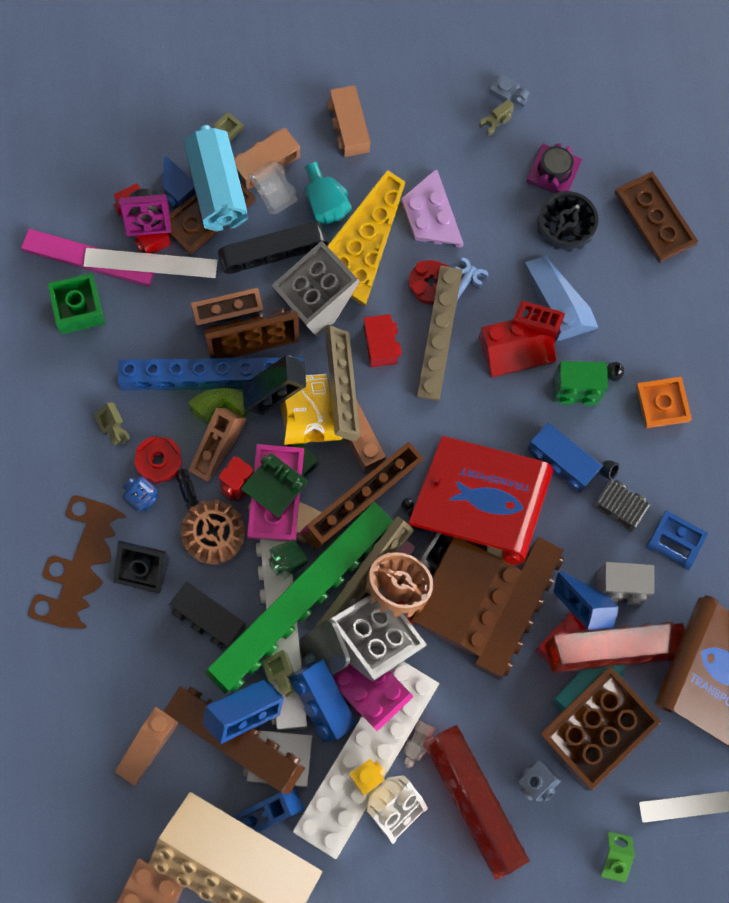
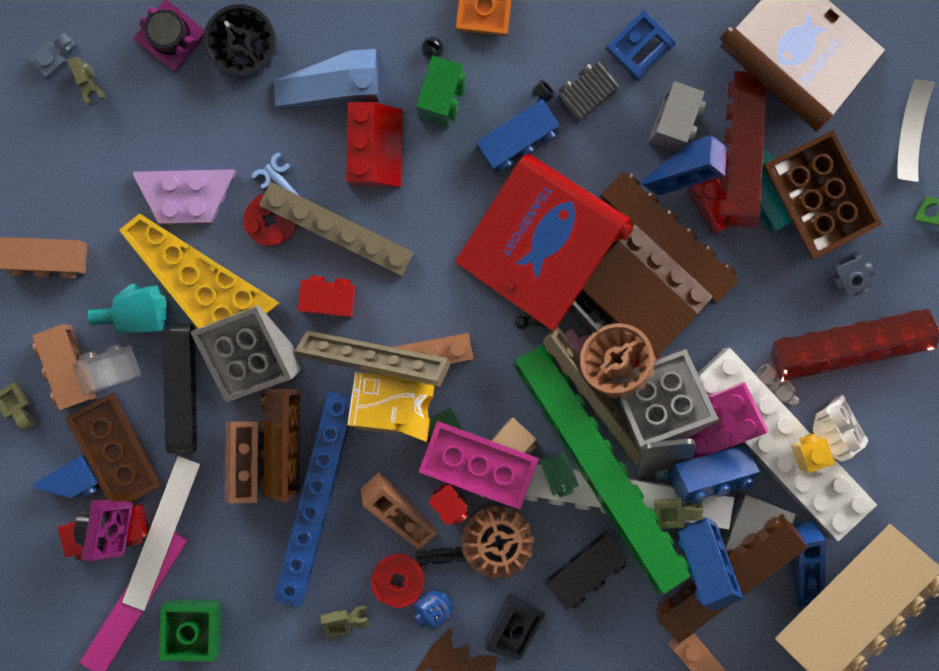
camera: 70 degrees left, 15 degrees up
(206, 402) = (349, 508): clear neon green brick -> none
(215, 178) = (79, 436): medium azure brick -> none
(274, 385) = (358, 435): black brick -> none
(274, 484) = (472, 465): dark green hinge -> none
(361, 496) = (506, 372): reddish brown brick -> none
(543, 328) = (355, 99): red slope -> none

